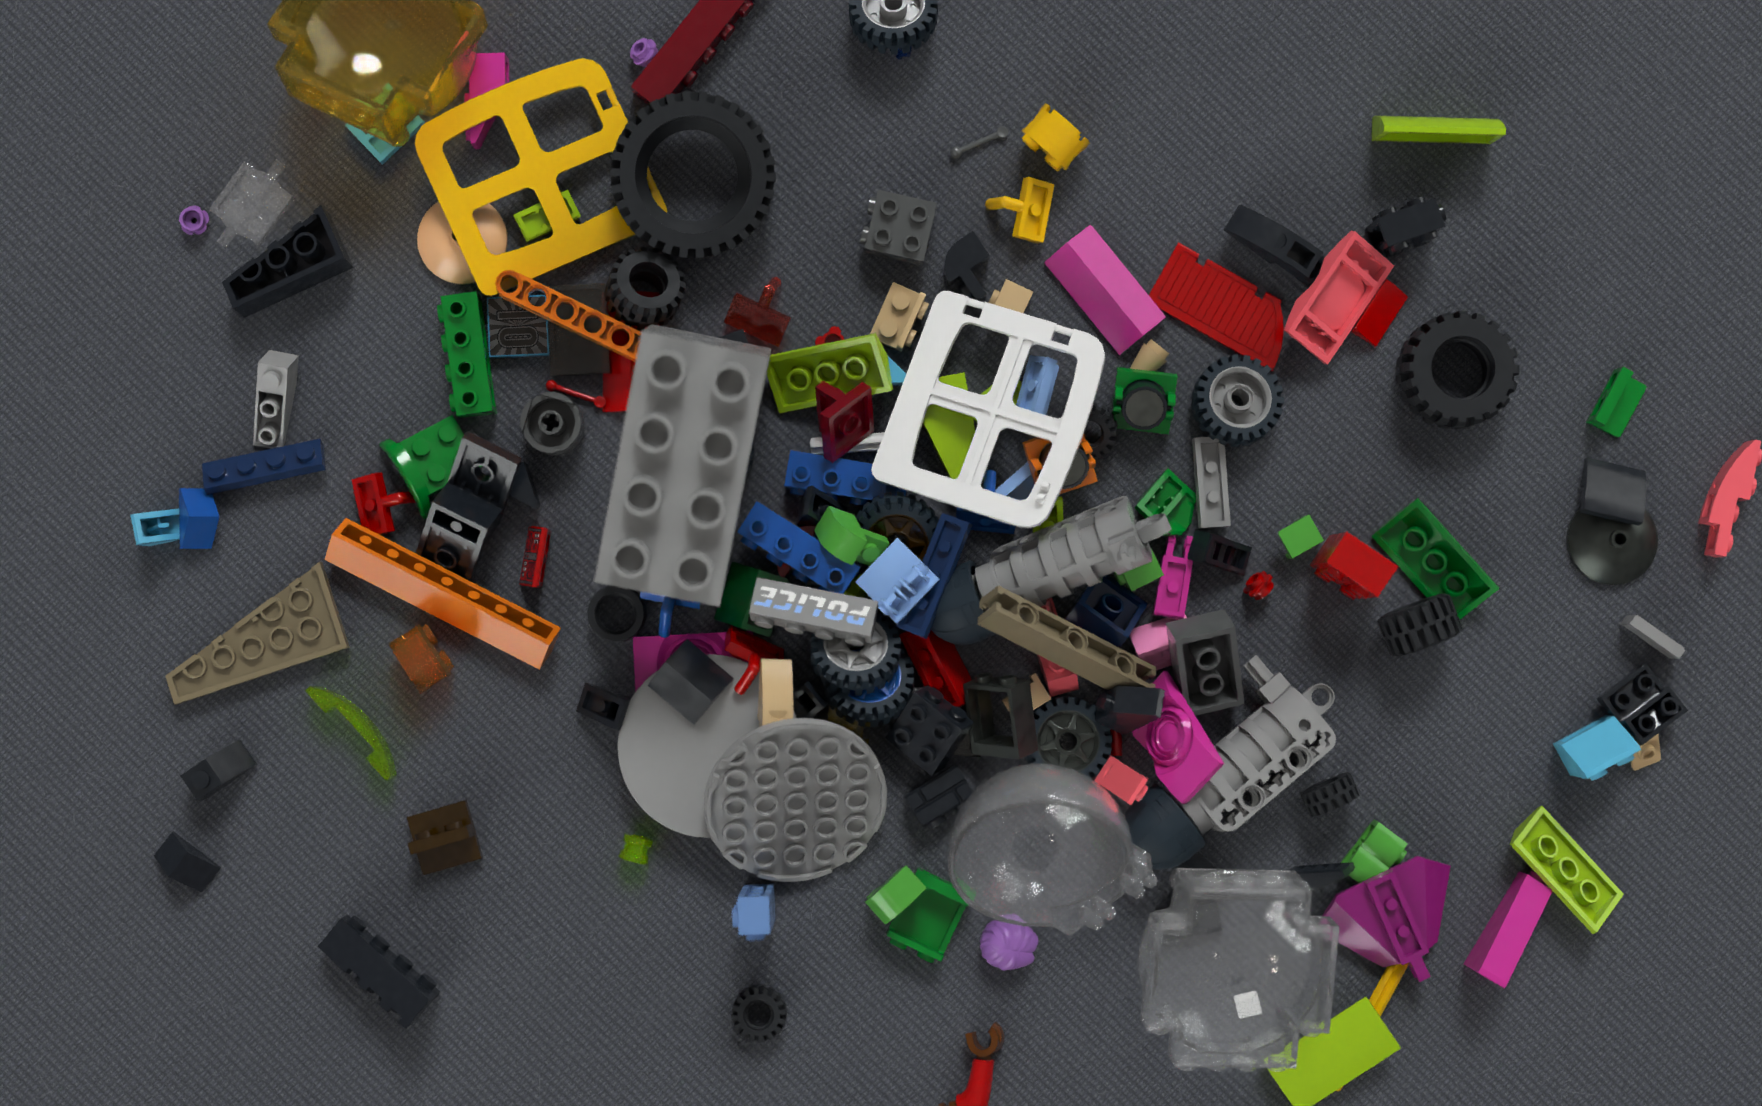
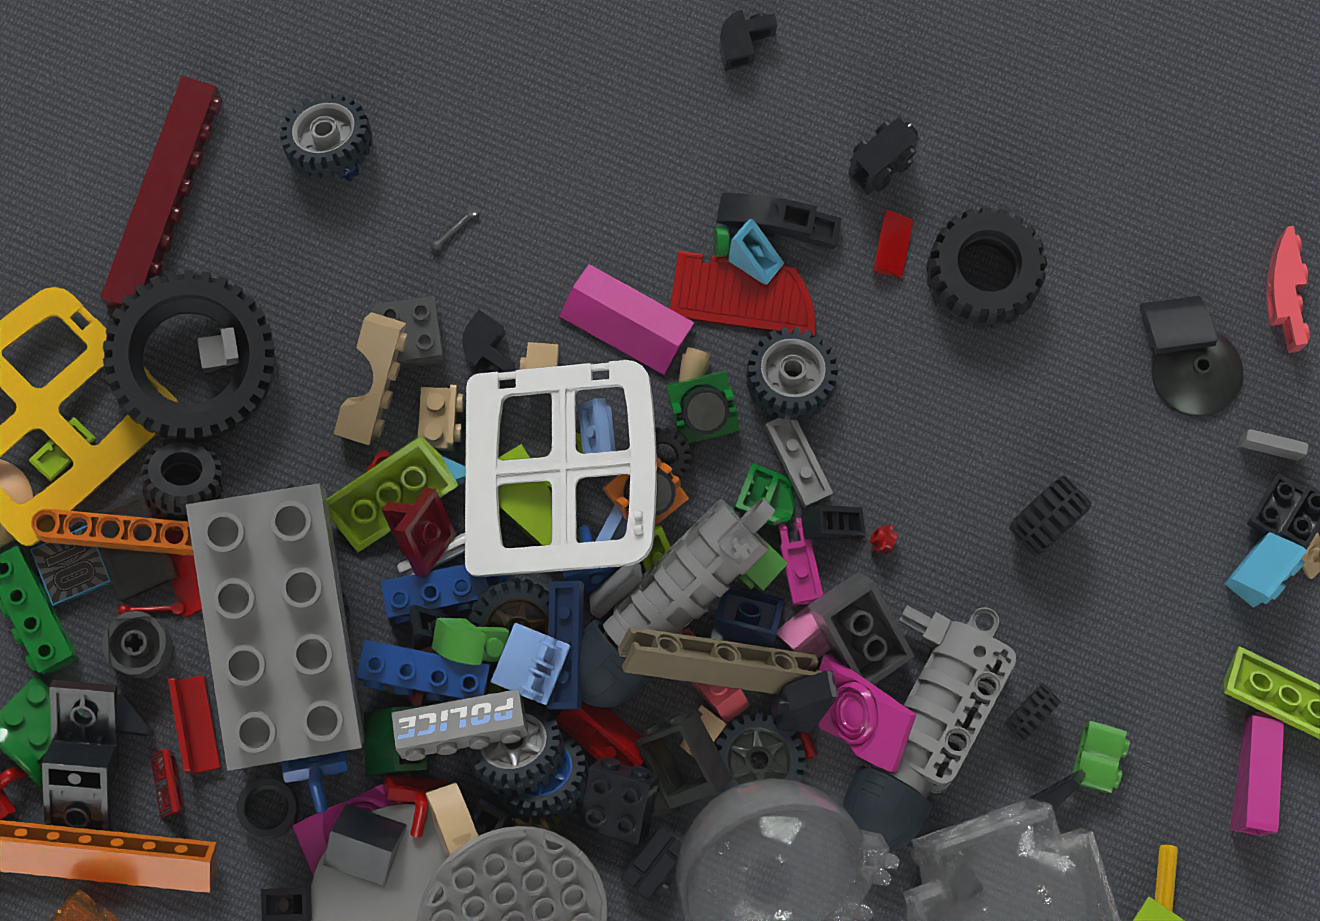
camera: 20 degrees left, 10 degrees down
(578, 514) = (194, 725): none -> red panel
(643, 51) = (101, 262): medium lavender plate -> none
(720, 178) = (218, 350): none -> light grey slope
(757, 317) = (303, 468): clear red plate -> none
(870, 232) = (380, 343): none -> tan arch
(996, 539) = (614, 589): none -> light grey tile
(1031, 209) = (527, 270): yellow plate -> none
(1054, 137) = (524, 196): yellow brick -> none
(1122, 780) = (827, 774): coral slope -> none
(1221, 249) = (721, 241): none -> green tile
(1248, 274) = (754, 253): none -> medium azure slope
(1300, 536) = (903, 478): bright green panel -> none
(1313, 56) = (737, 37): none -> black brick
(1337, 296) = (847, 242): coral slope -> none
(1353, 566) = (964, 484): red brick -> none
(1394, 914) = (1143, 805): magenta panel -> none
(1434, 558) = (1038, 449): green slope -> none
(1437, 129) = (876, 60): lime slope -> none
(1617, 402) = (1147, 243): green panel -> none

